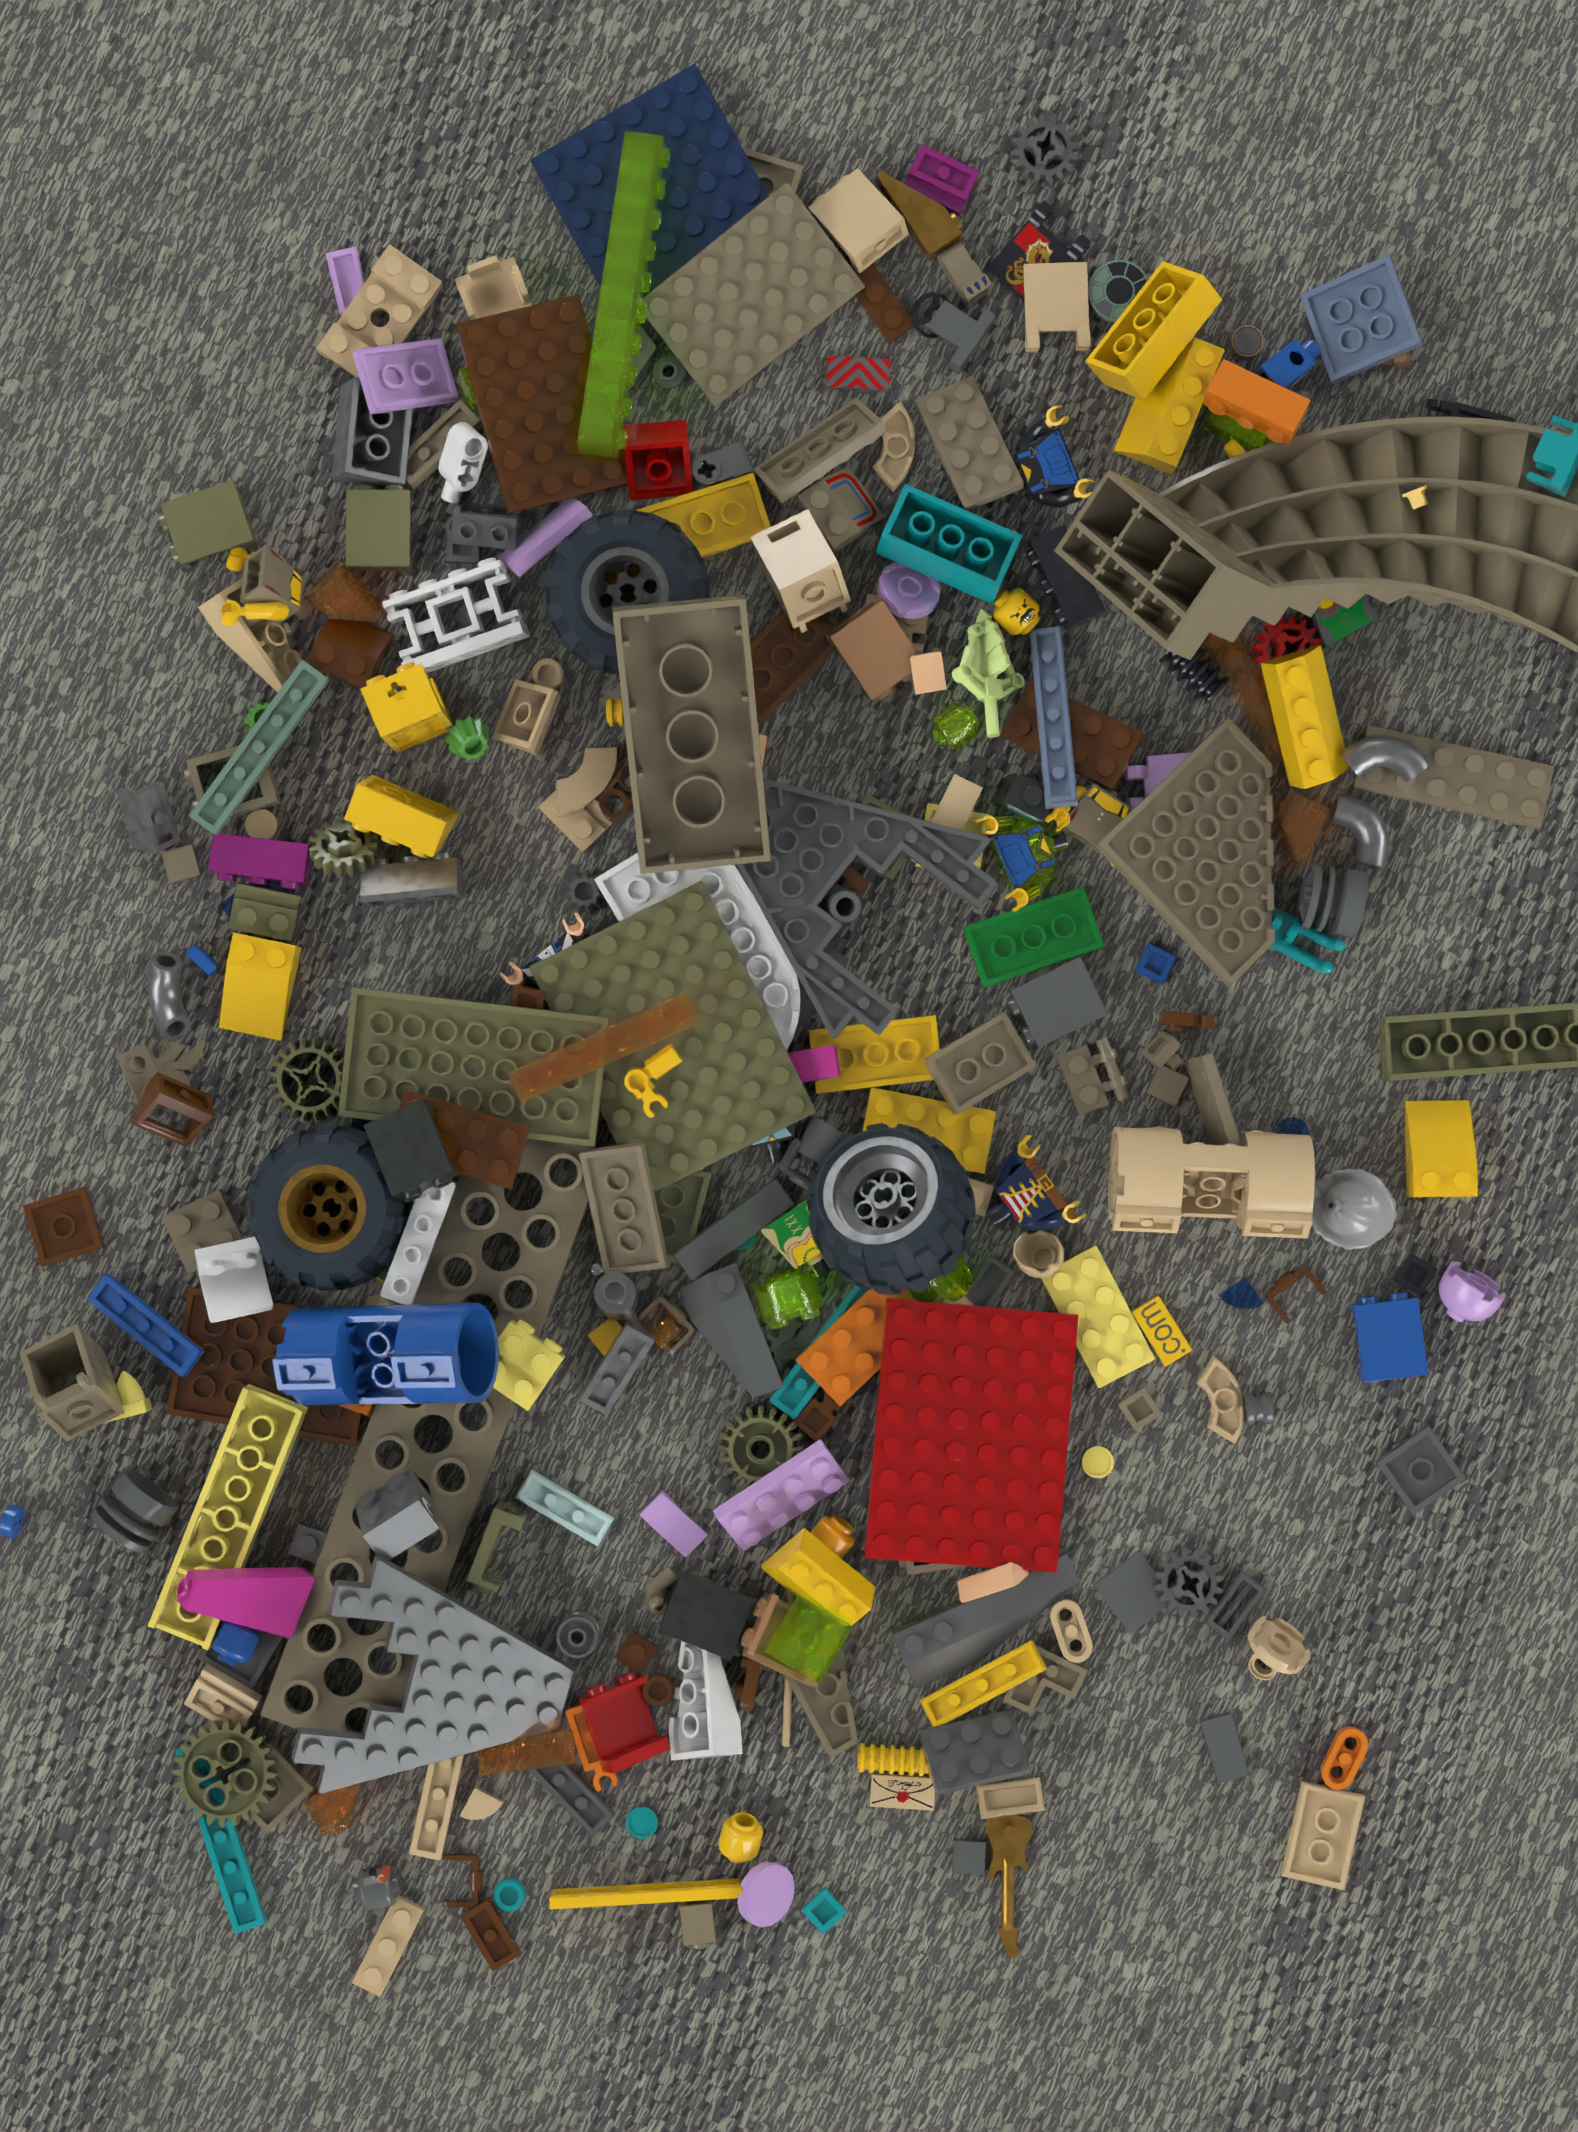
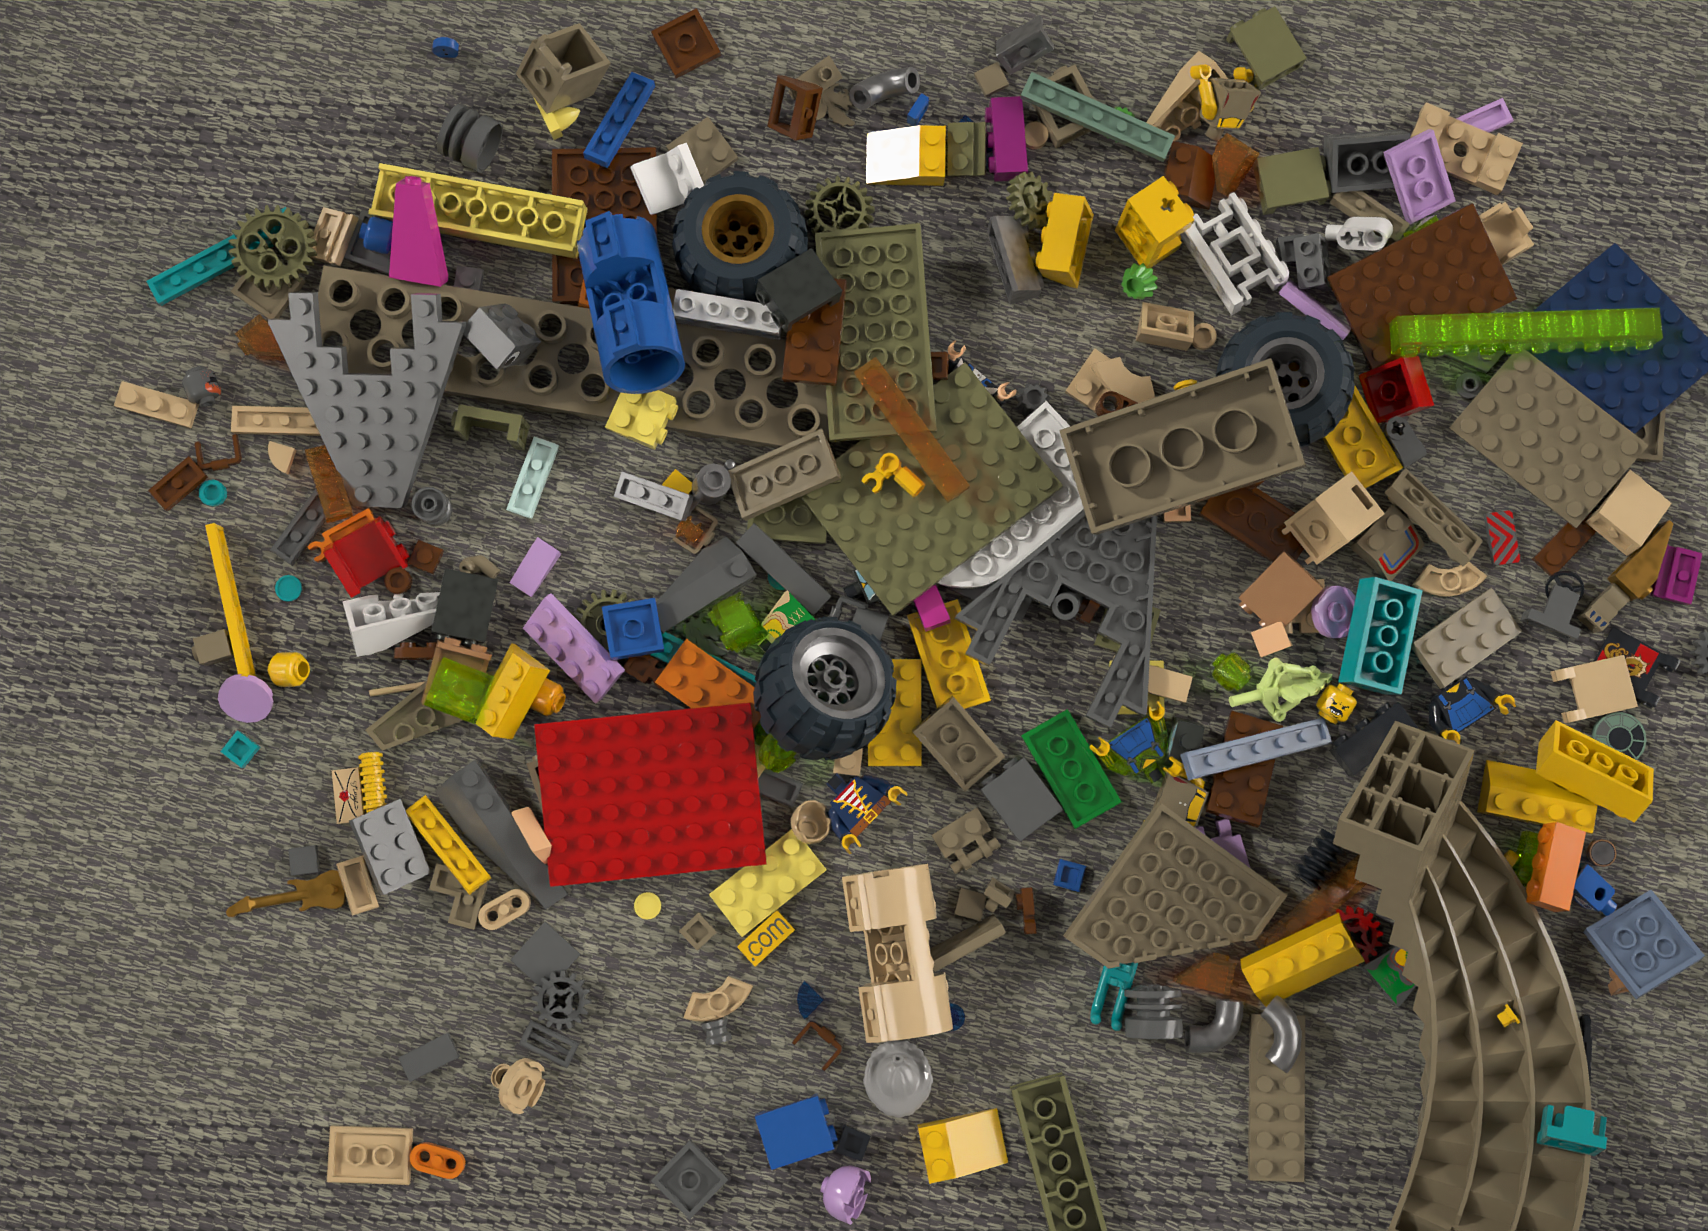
camera: 80 degrees right, 5 degrees down
(774, 1421) = (633, 629): none -> blue plate

